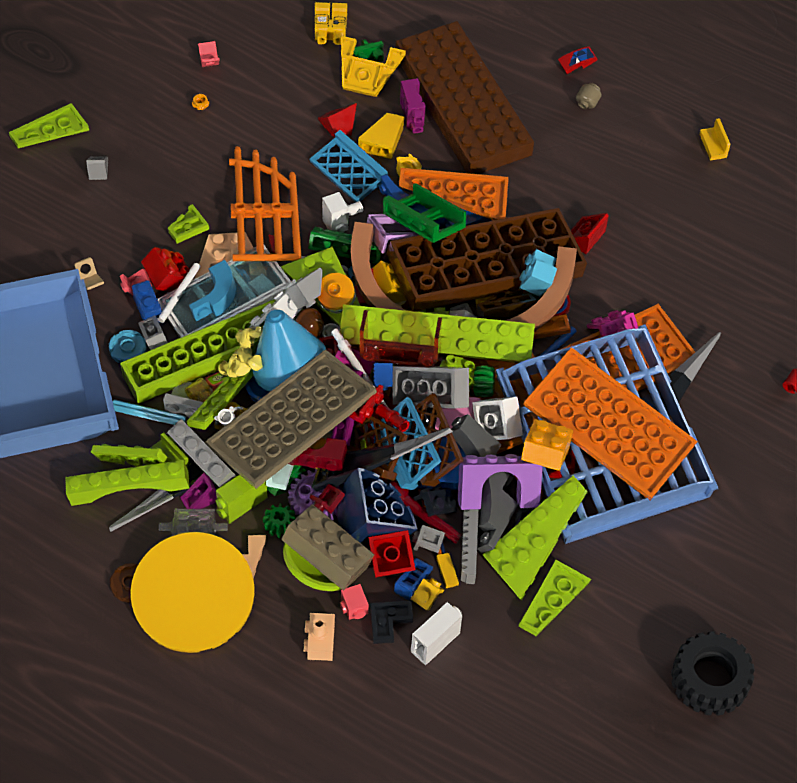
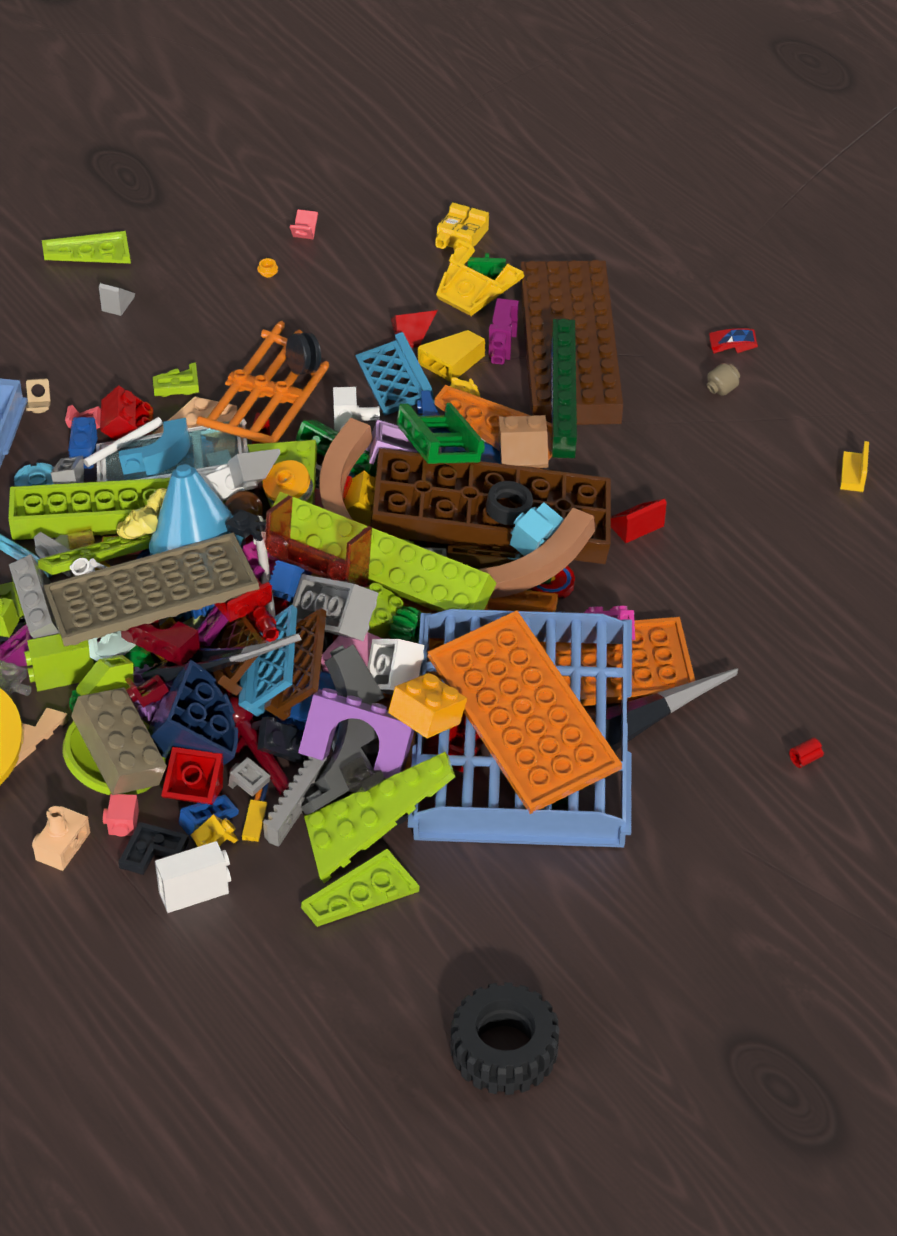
camera: 25 degrees right, 10 degrees down
(280, 174) = (303, 353): none -> black head
(291, 499) = (107, 675): none -> lime slope
(332, 339) = (245, 523): none -> black plate
(487, 200) = (523, 441): none -> medium nougat slope
(492, 145) = (563, 389): none -> dark green brick
(503, 266) = (510, 490): none -> black tyre
(516, 514) = (360, 777): none -> clear smoke bracket

